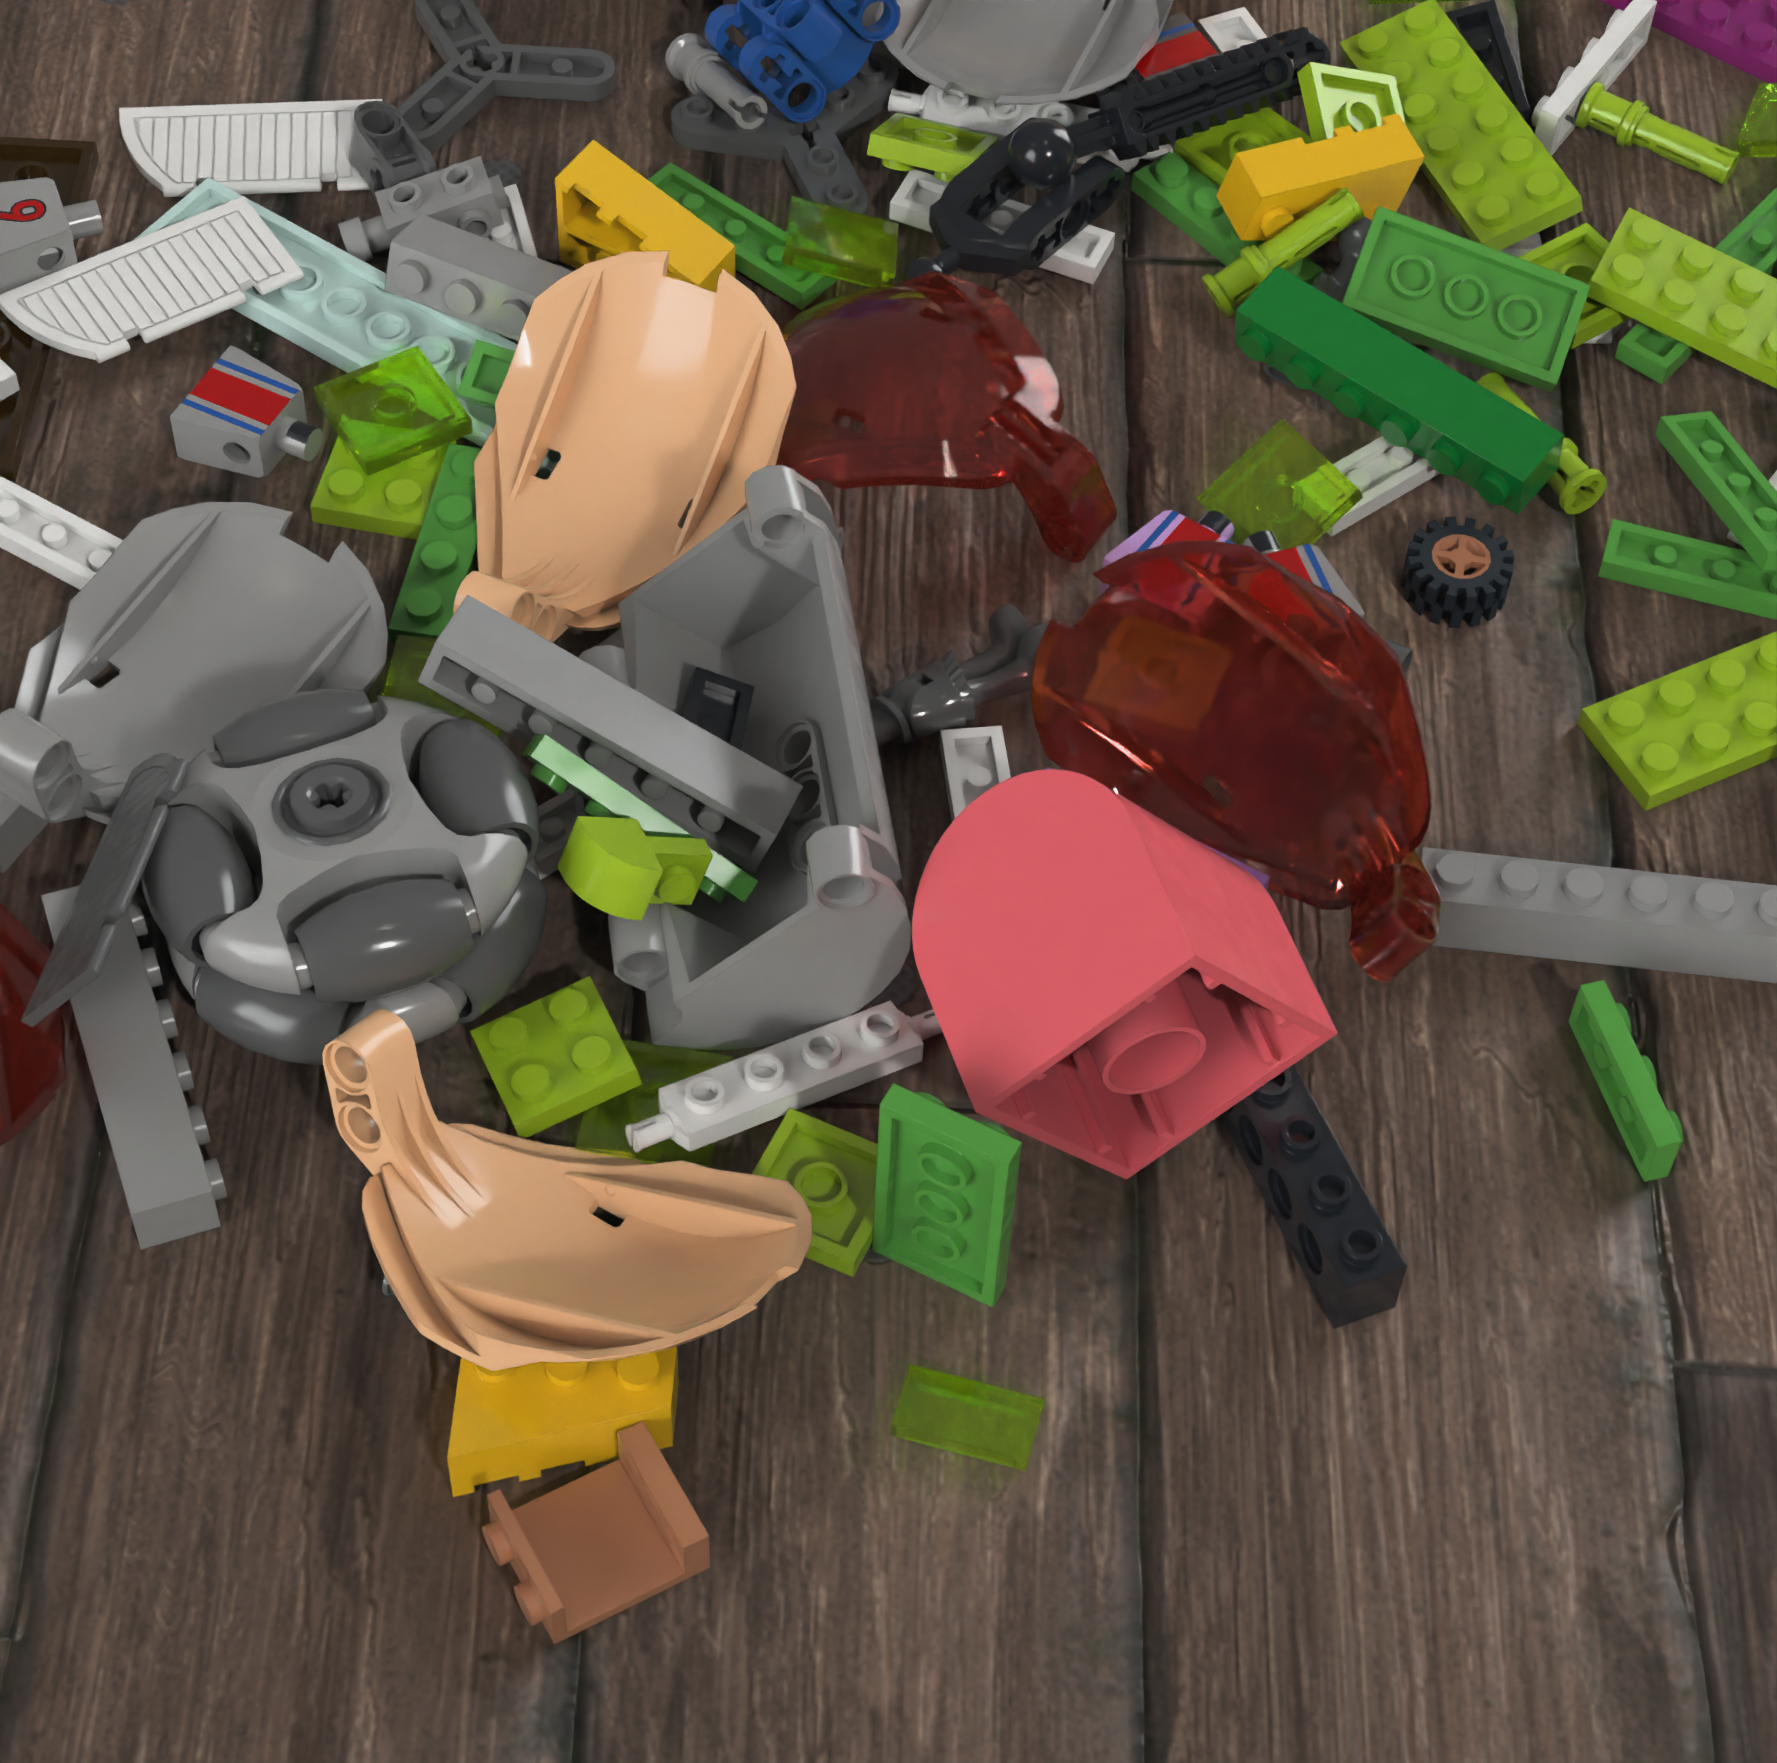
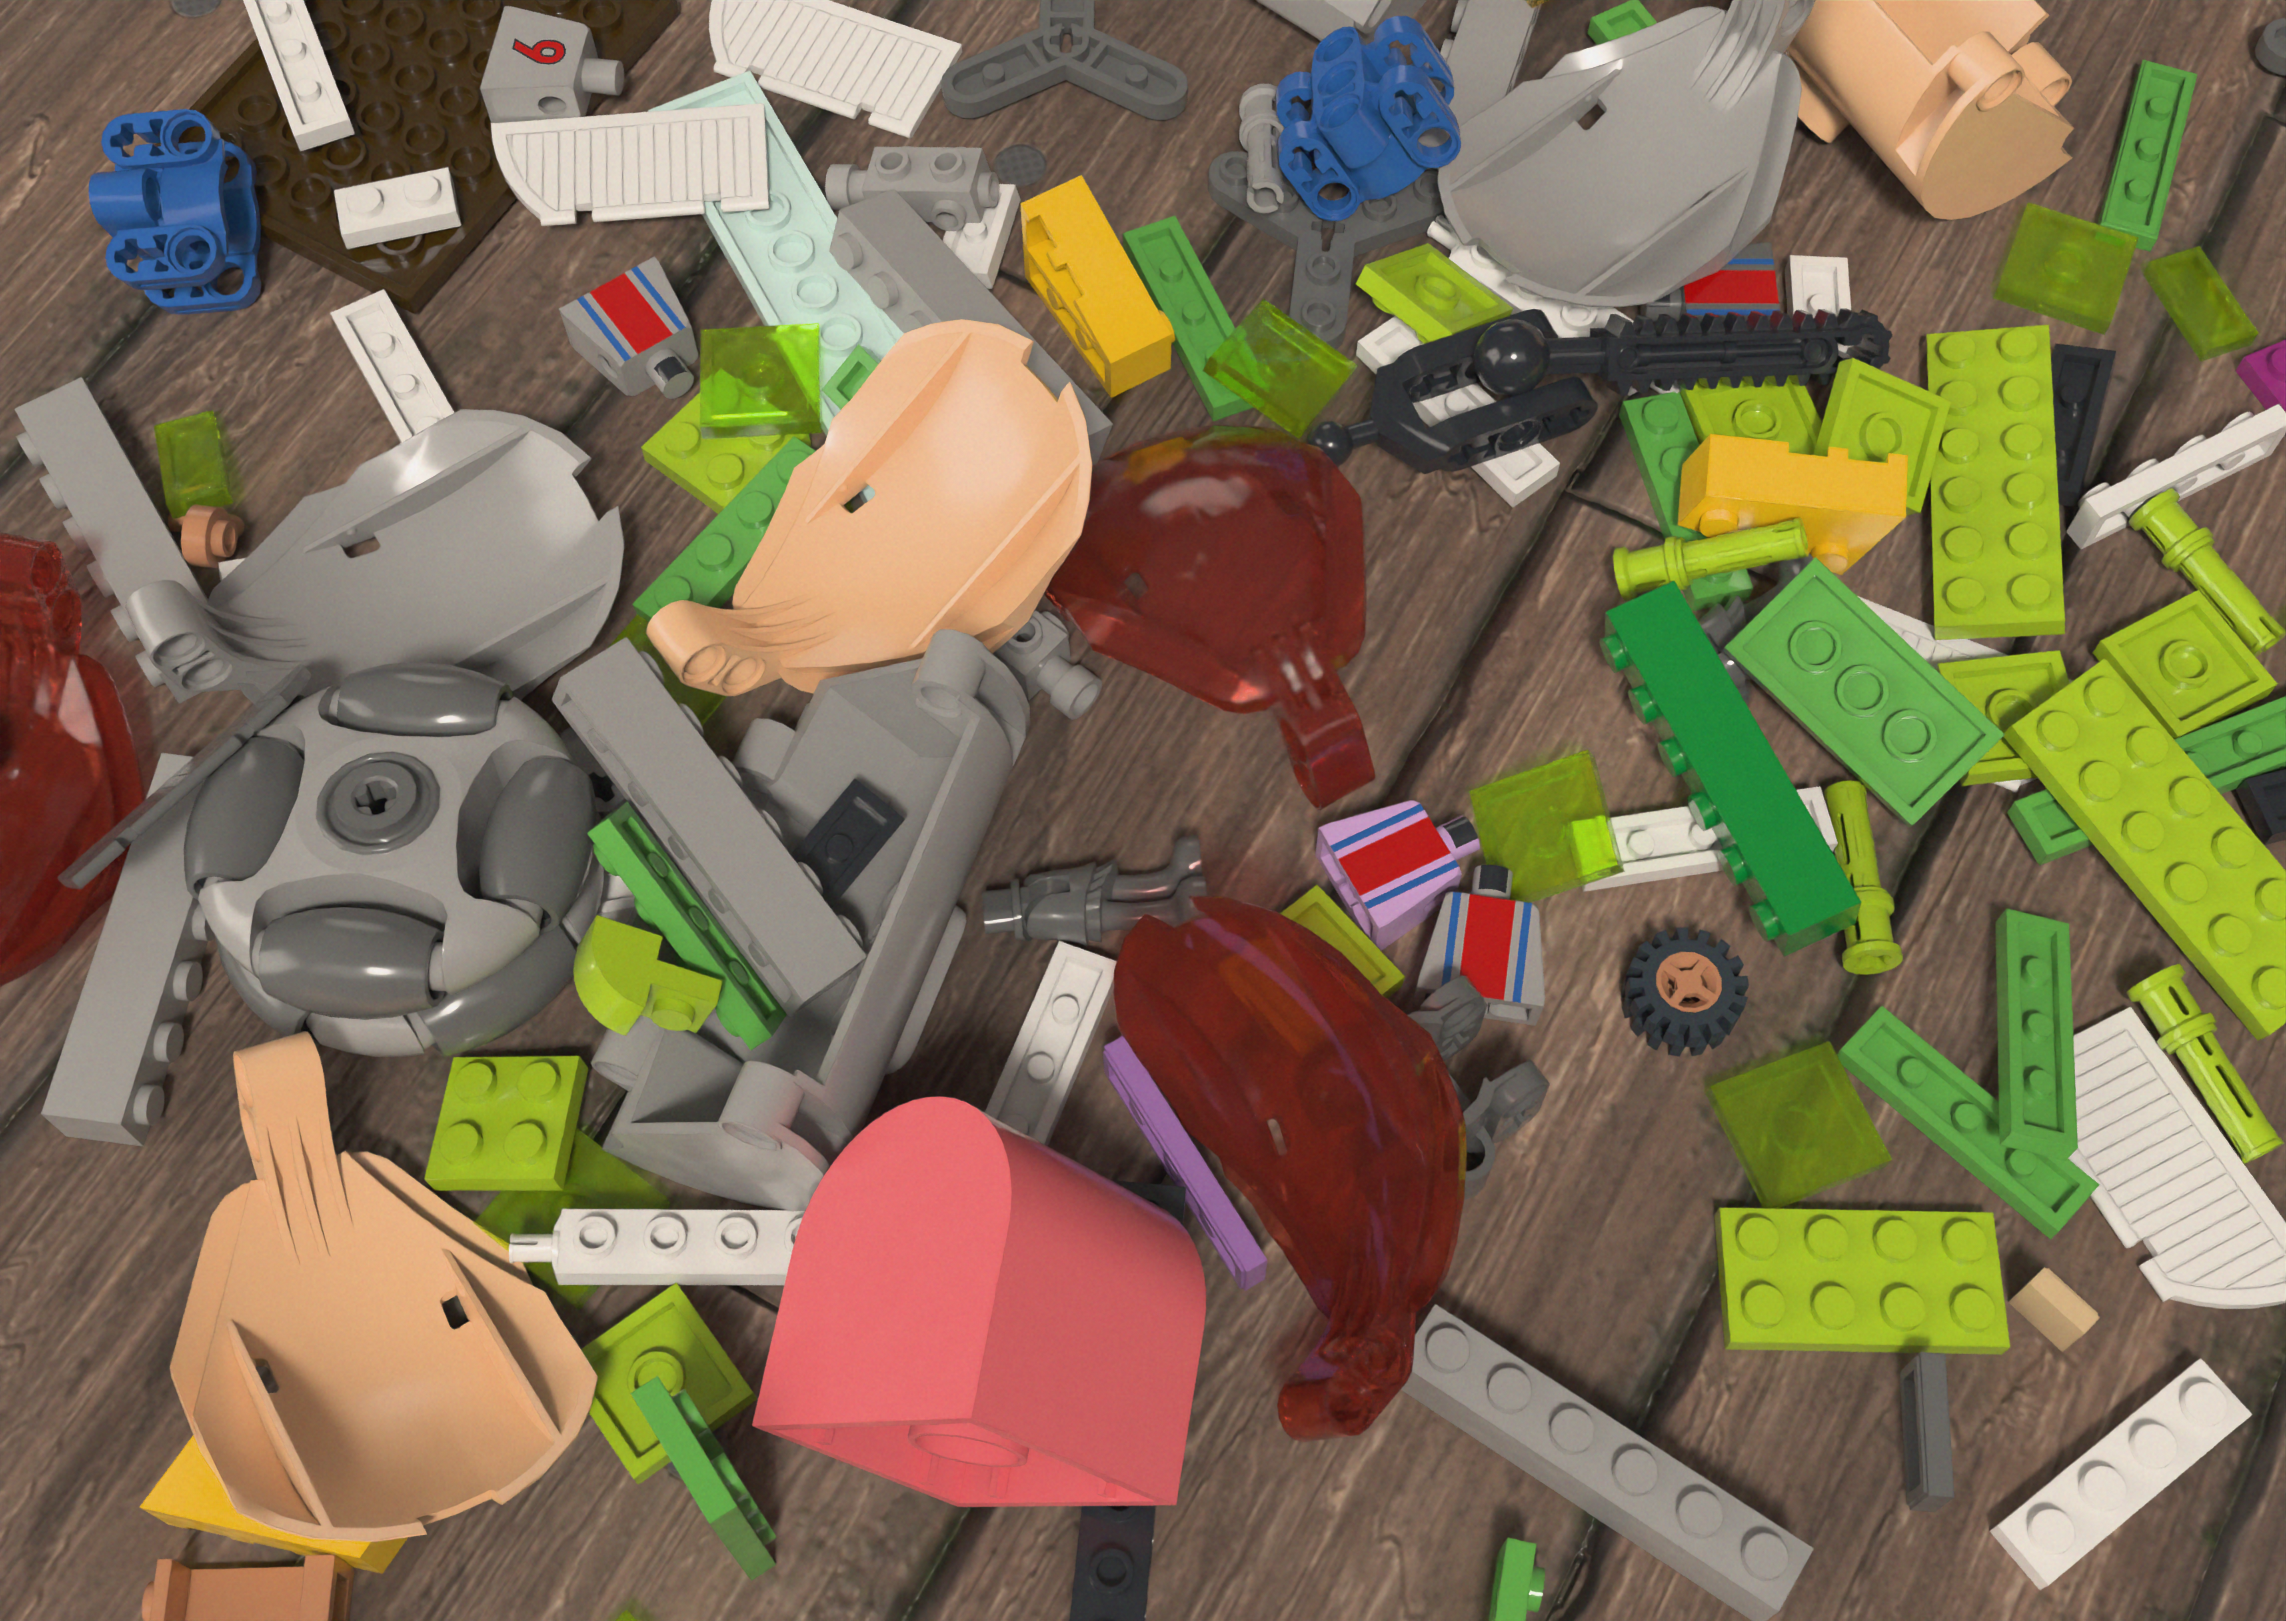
camera: 30 degrees right, 10 degrees up
(386, 147) = (920, 114): dark grey piece -> none
(1601, 632) = (1798, 1126): none -> clear neon green tile
(1685, 198) = (2187, 665): none -> lime plate

